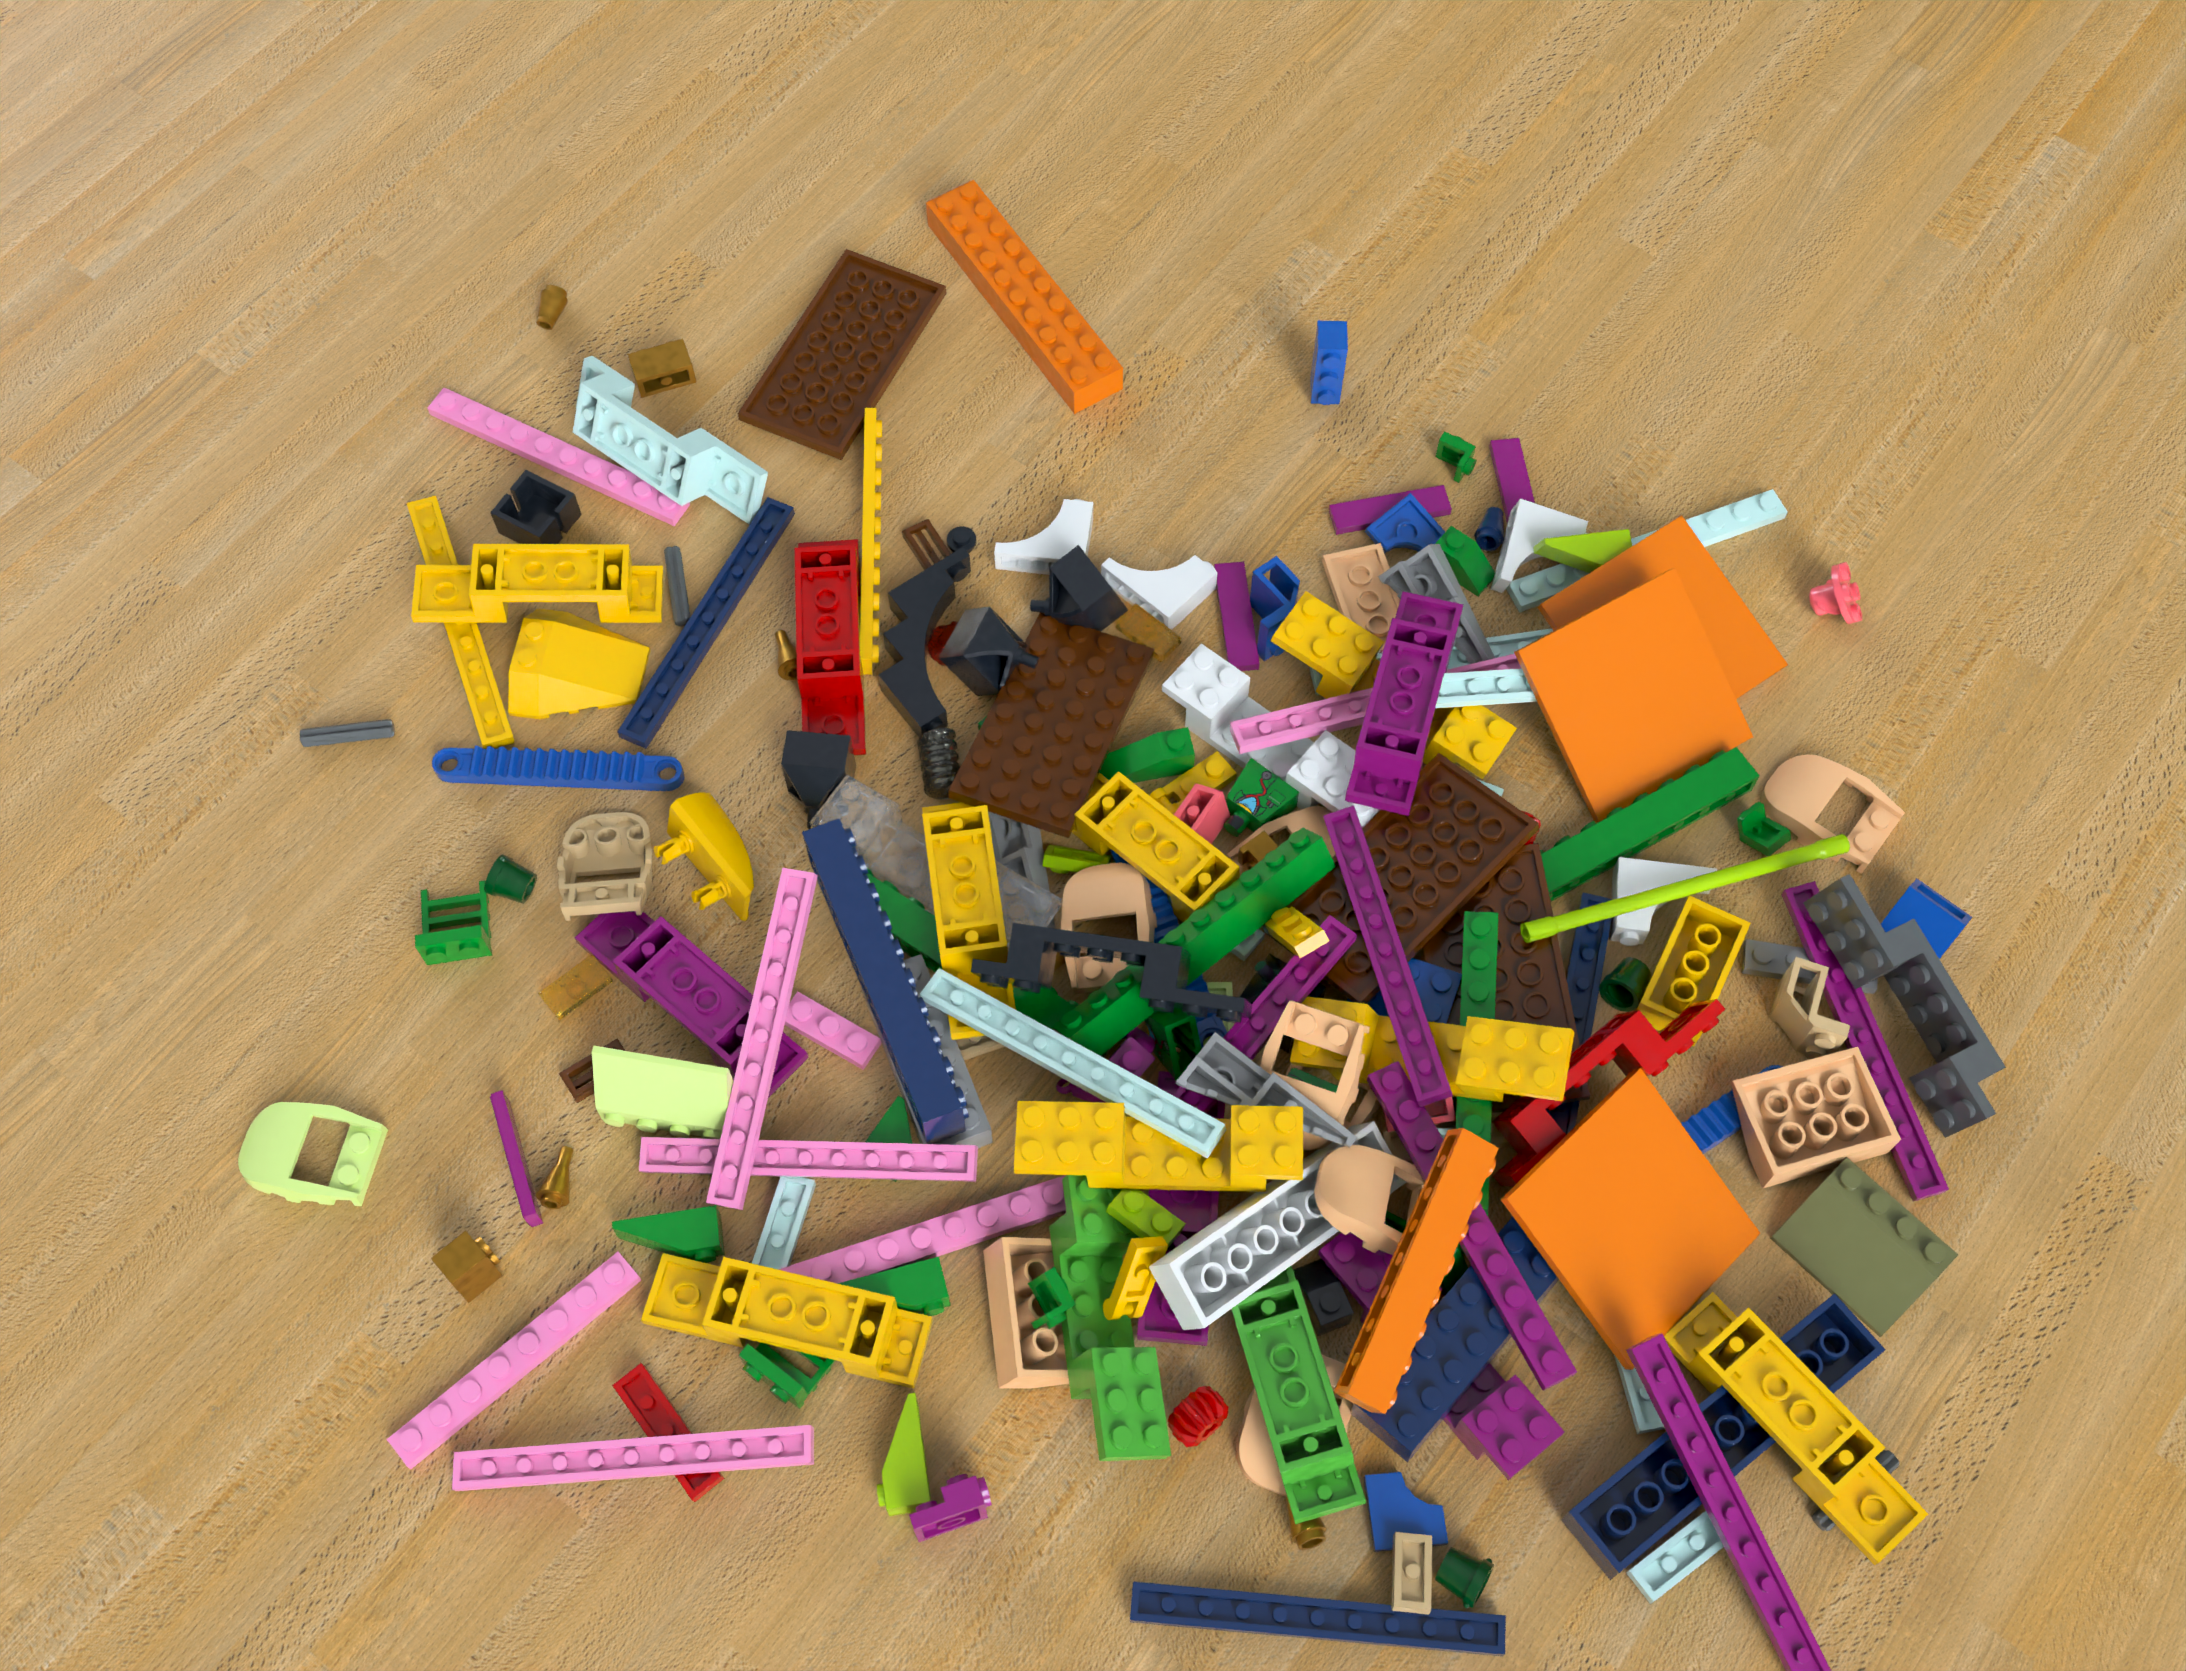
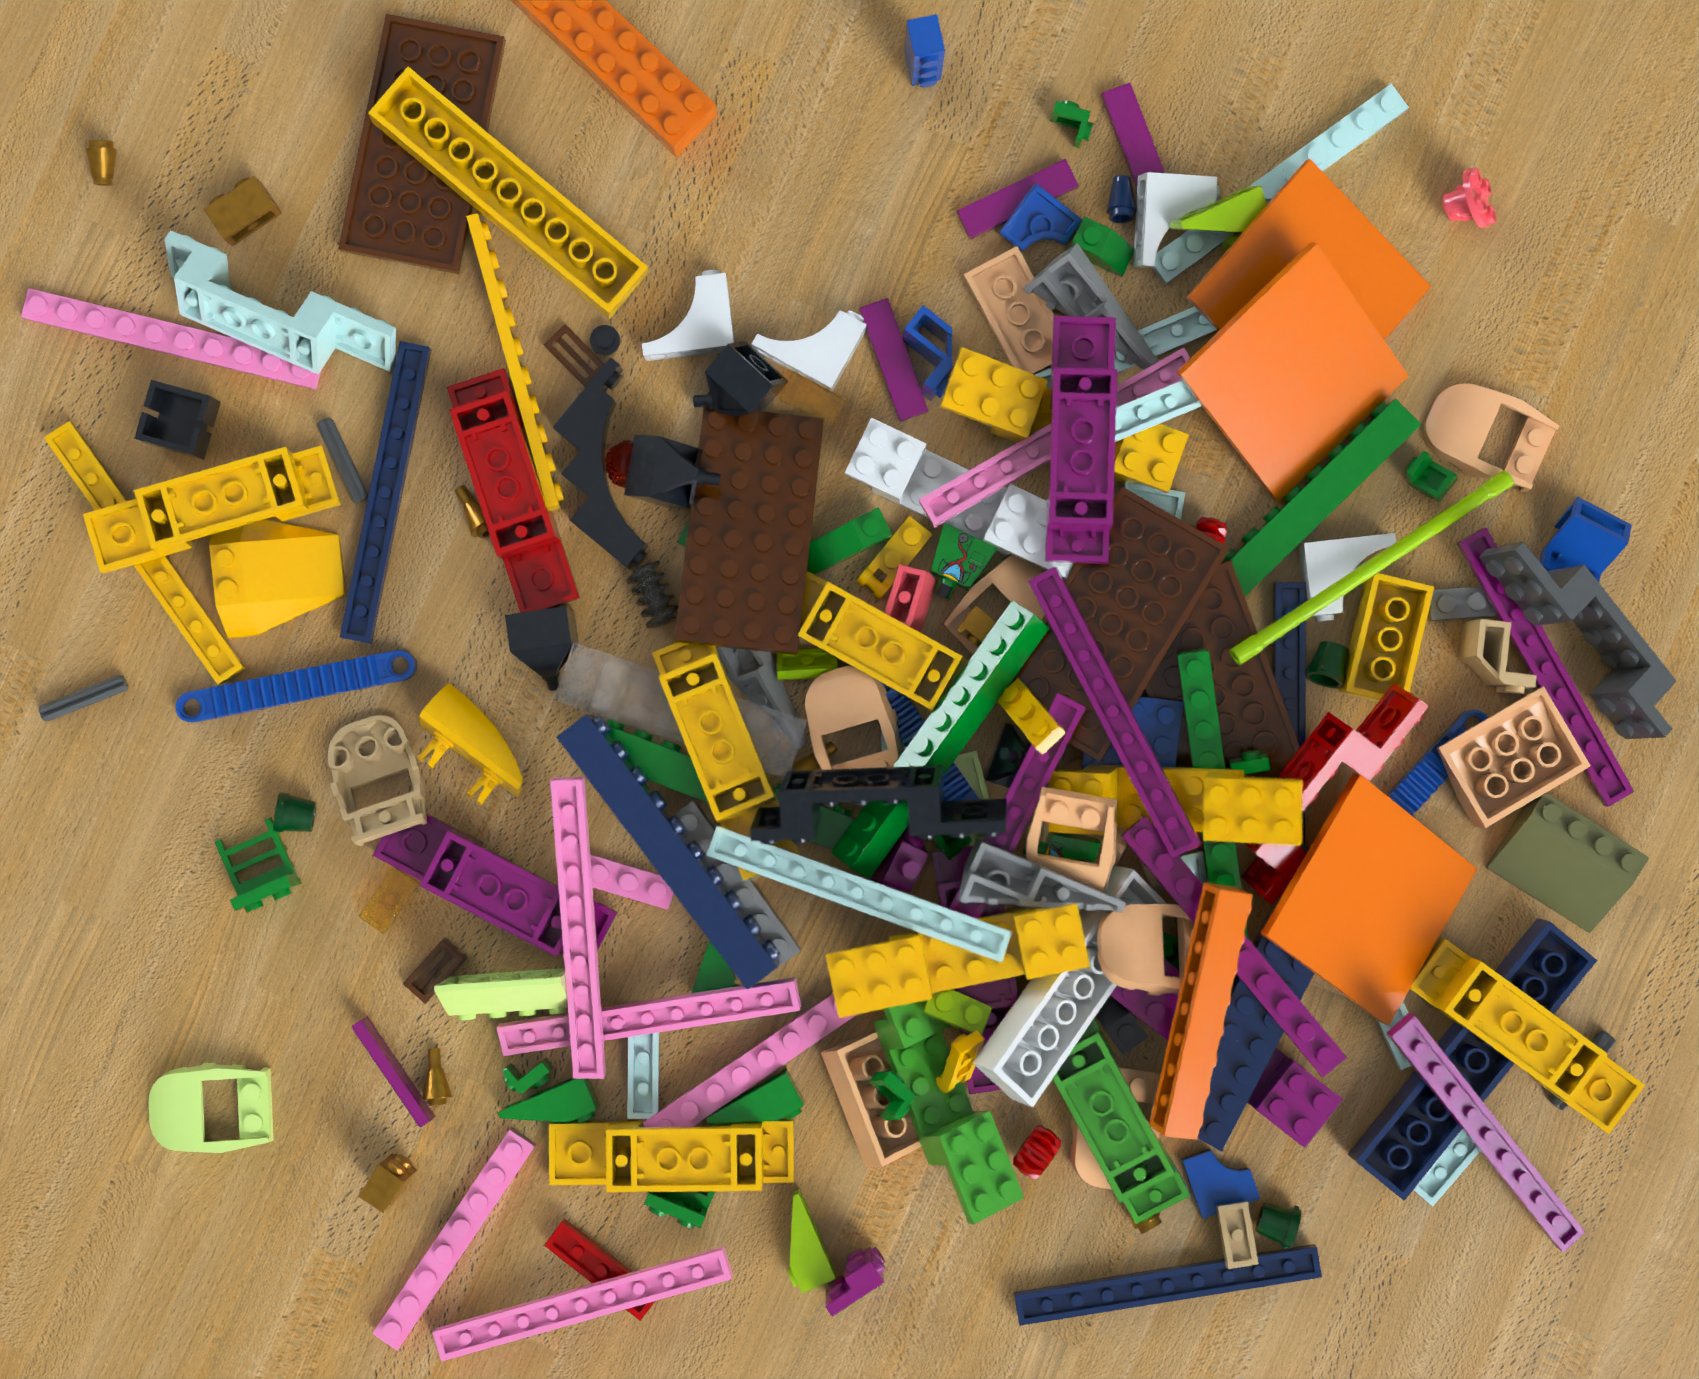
camera: 15 degrees left, 25 degrees up
(659, 1201) = (535, 1077): none -> green bracket
(912, 398) = (508, 192): none -> yellow brick

